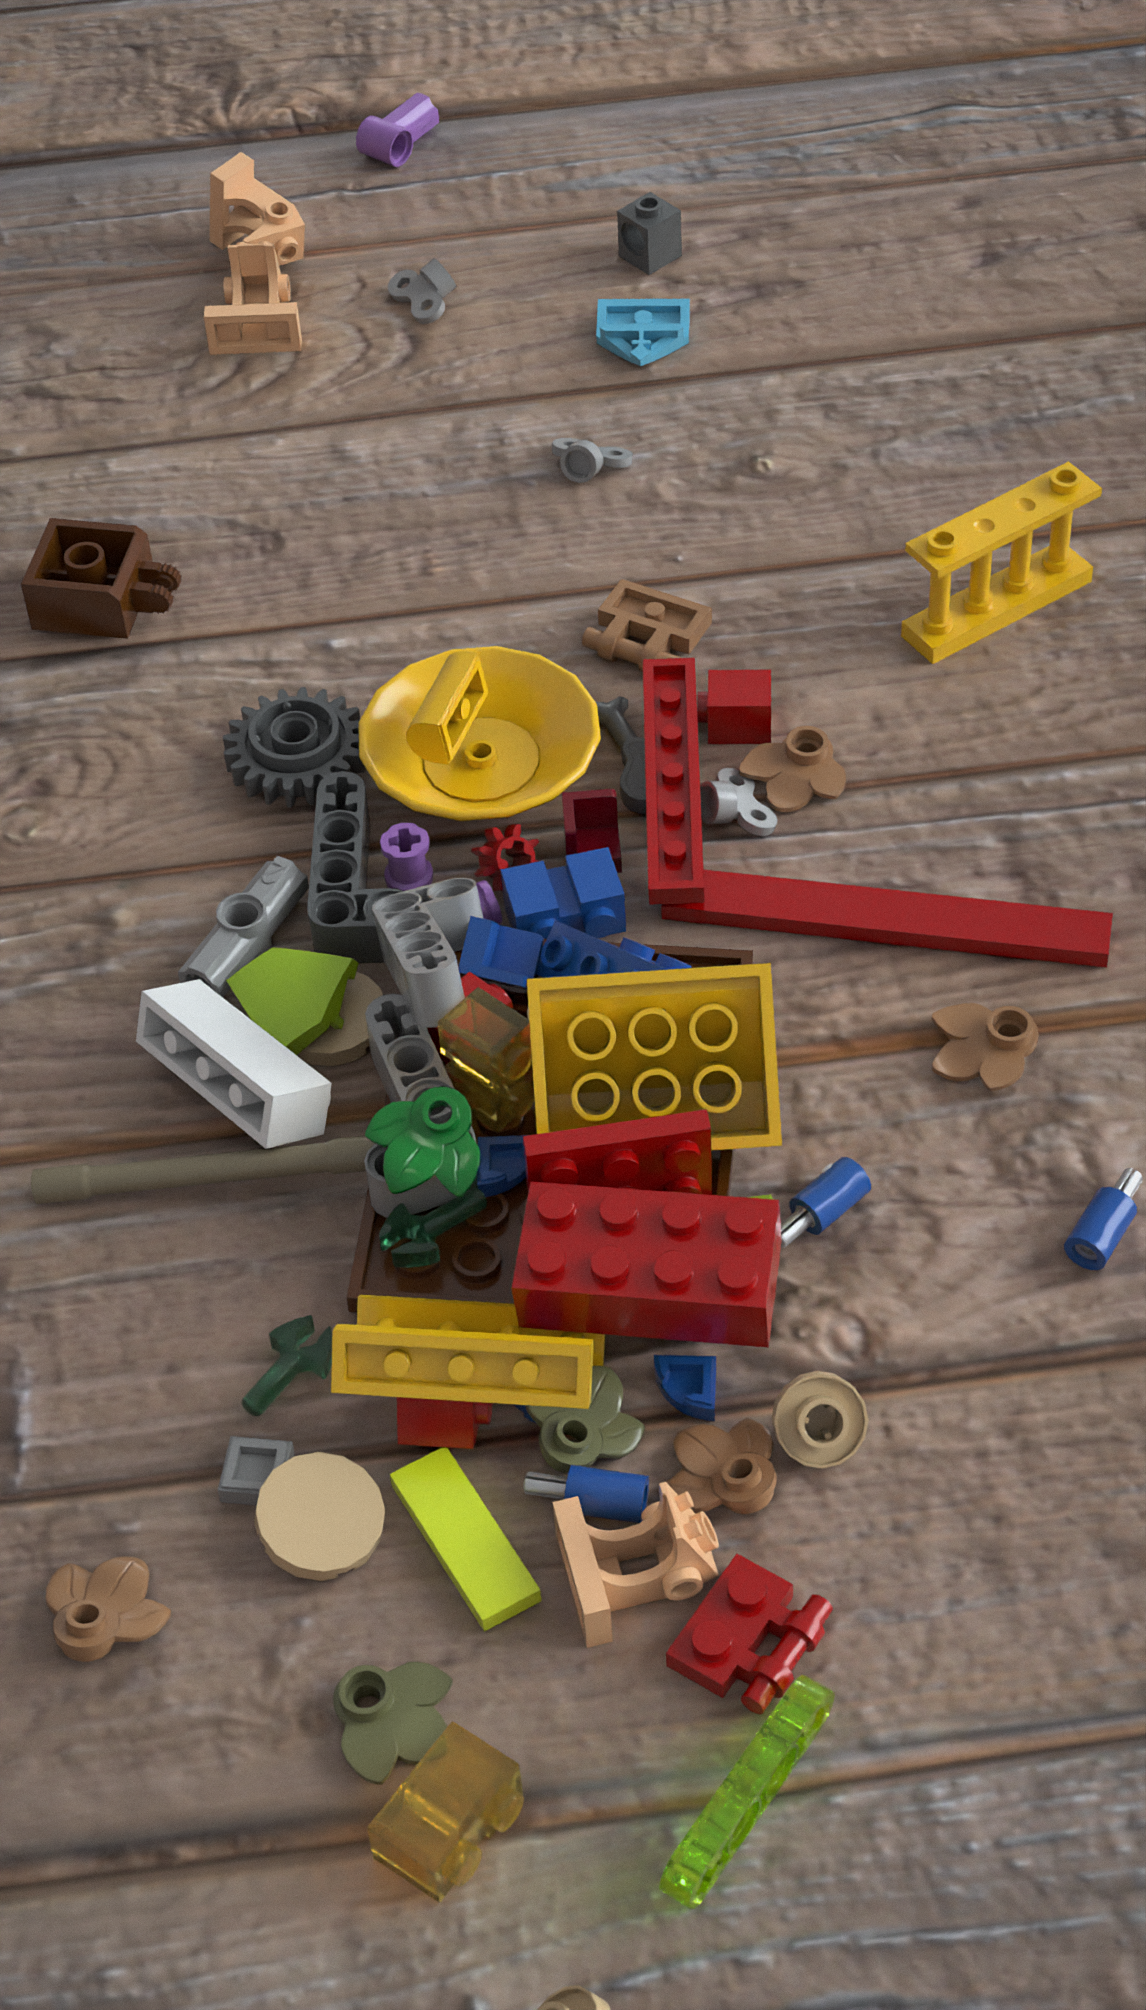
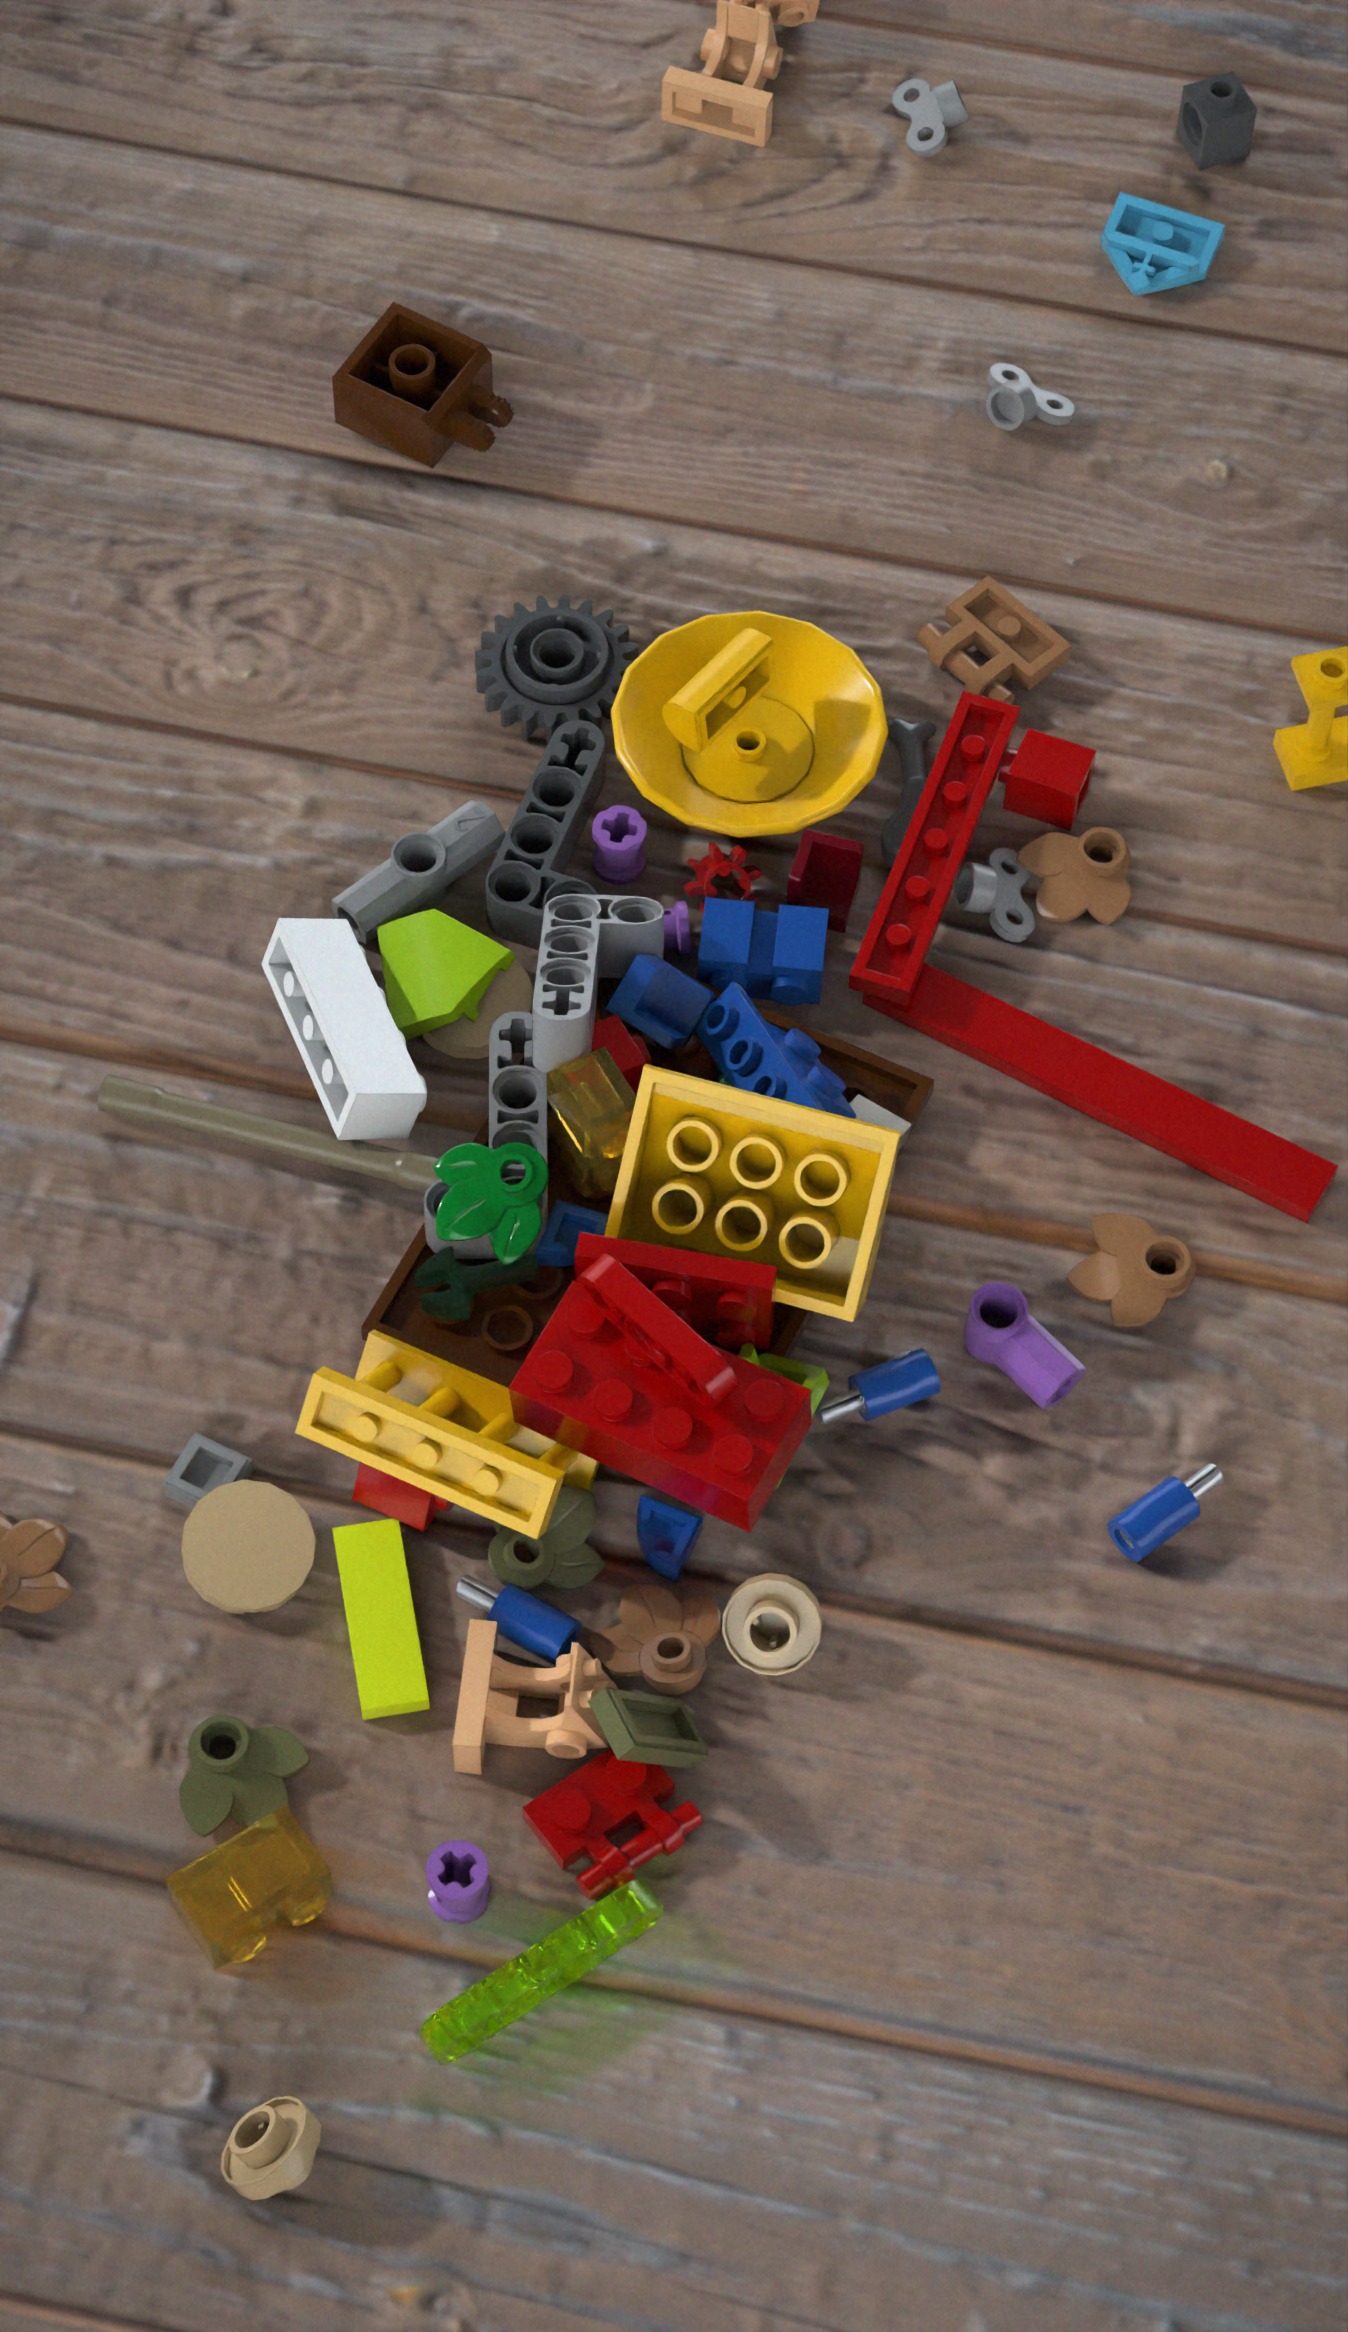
camera: 15 degrees right, 10 degrees up
(292, 1361) = (285, 1373): clear green bar -> none
(630, 1189) = (657, 1331): none -> red beam
(633, 1736) = (463, 1863): none -> medium lavender bush
(754, 1540) = (648, 1728): none -> olive tile
(904, 1124) = (1022, 1349): none -> medium lavender piece

